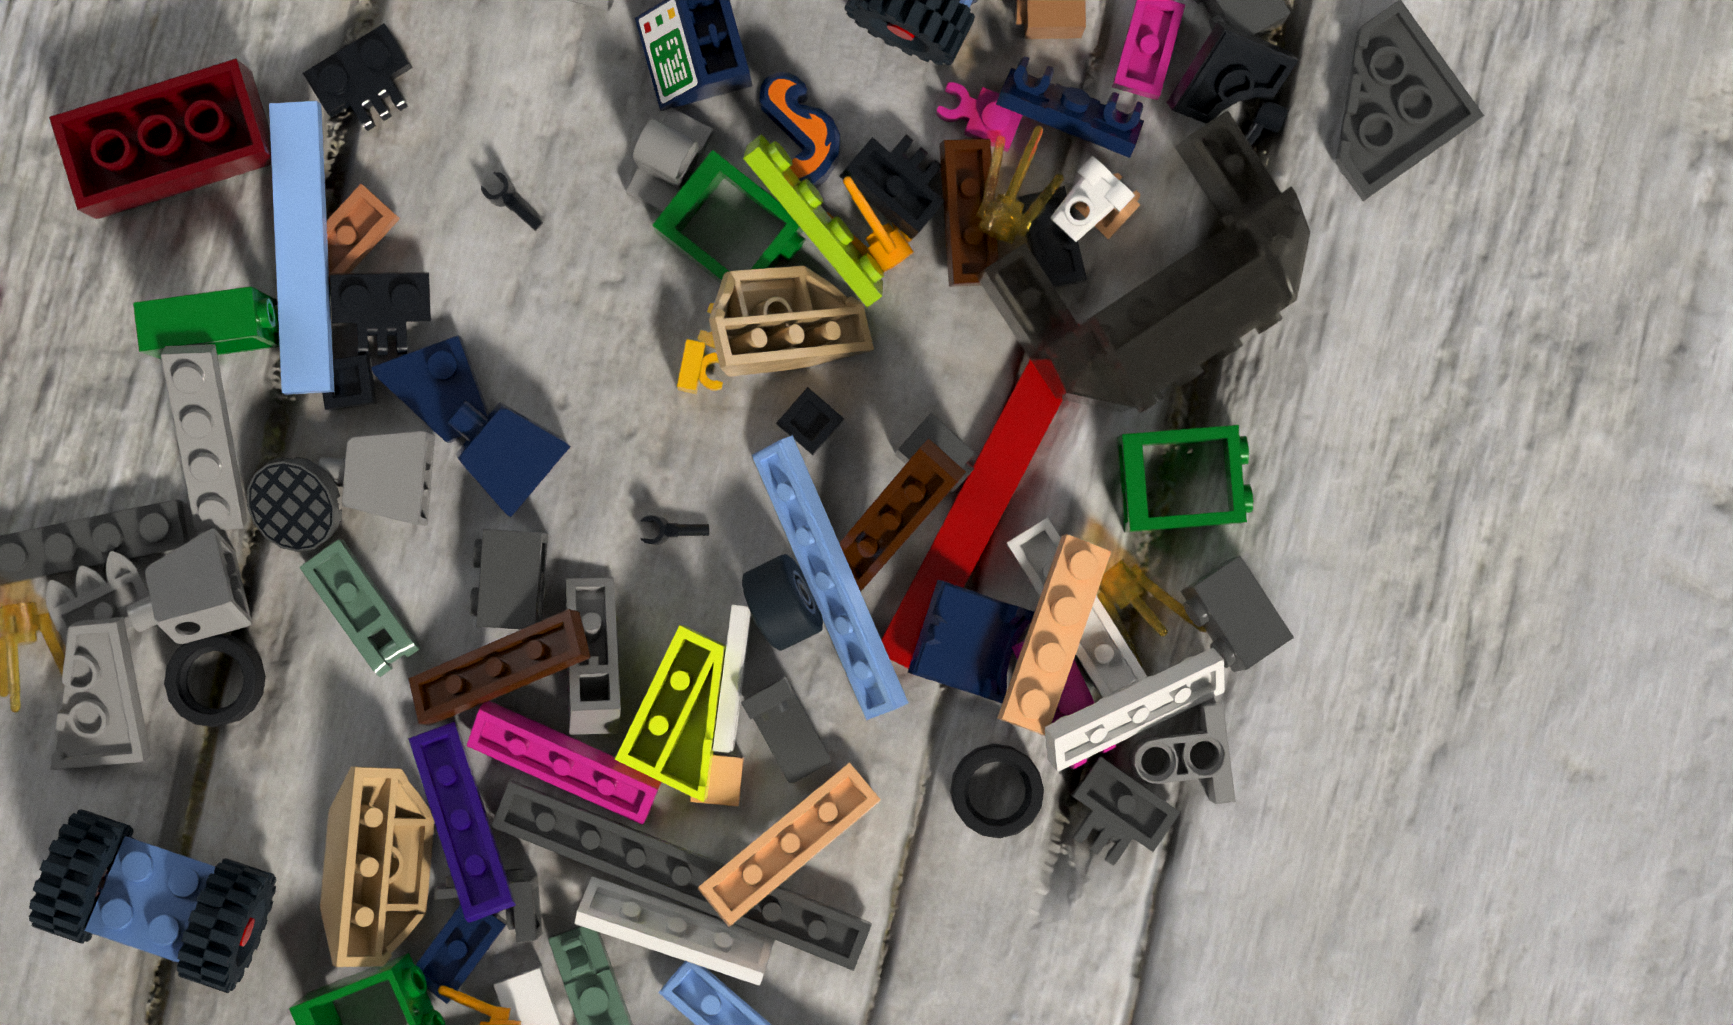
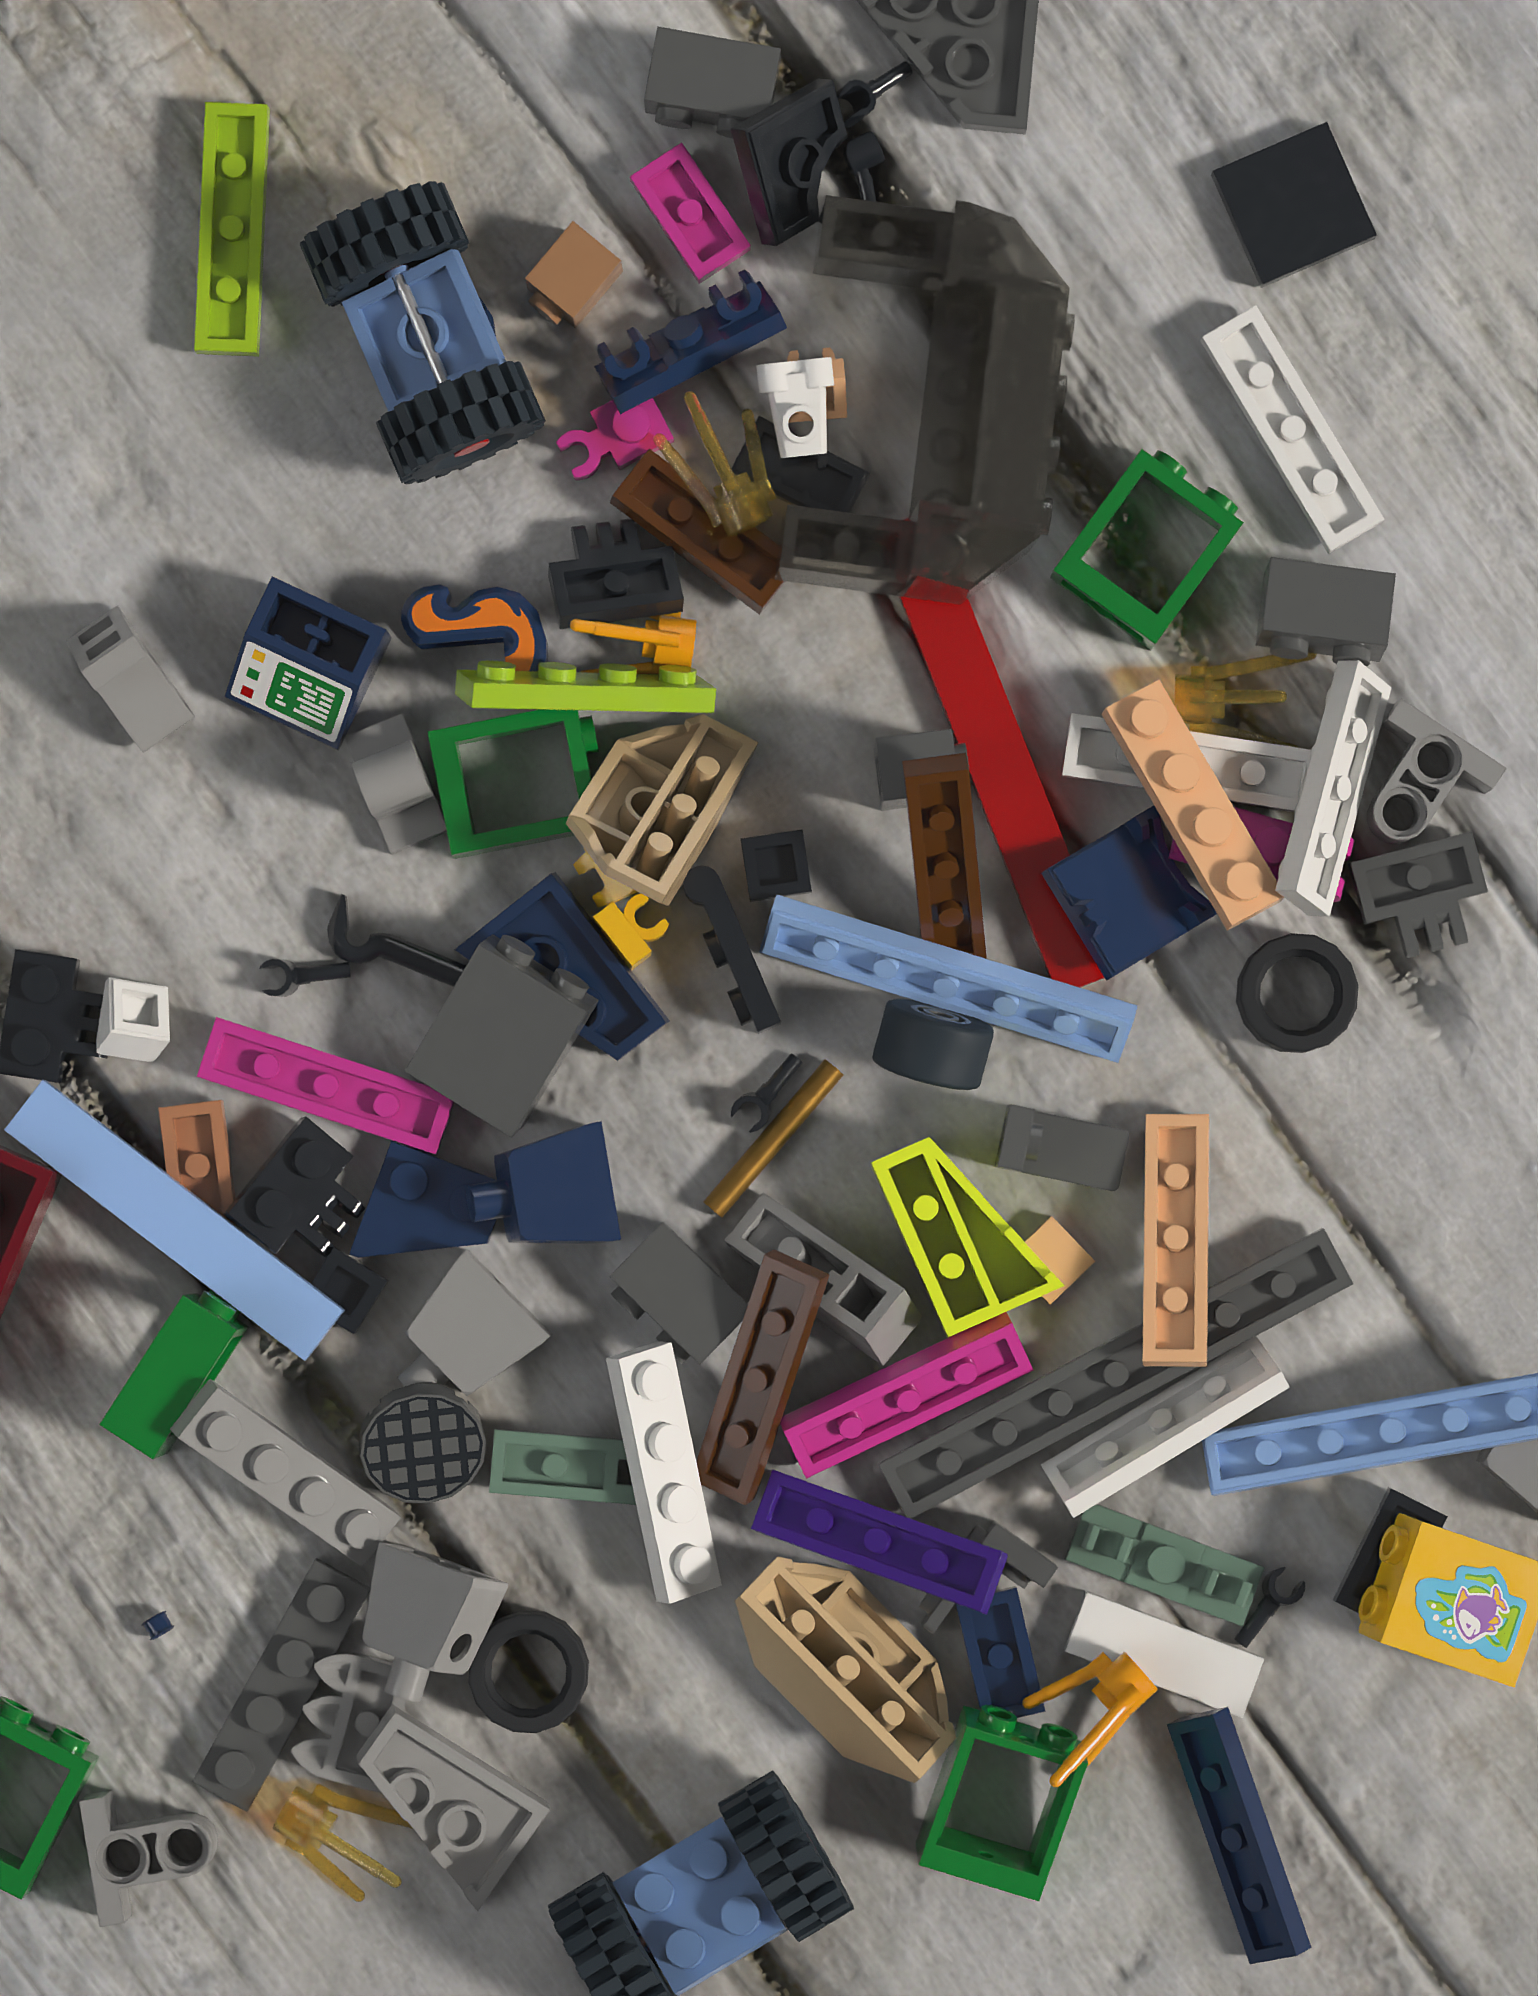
camera: 45 degrees left, 0 degrees up
(62, 441) = (157, 1625): none -> dark blue piece
(396, 659) = (663, 1471): none -> white plate
(401, 126) = (133, 1020): none -> white slope
(458, 270) = (325, 1085): none -> dark pink plate
(573, 345) = (502, 1033): none -> dark grey brick
(581, 271) = (389, 948): none -> black piece
(647, 350) = (568, 939): none -> dark blue wing
(650, 556) = (773, 1138): none -> pearl gold bar
(732, 679) = (965, 1157): white tile -> none
(739, 434) = (730, 947): none -> black plate
(1304, 87) = (864, 95): none -> black hand
(1325, 504) = (1292, 429): none -> white plate
(1458, 392) = (1293, 204): none -> black tile

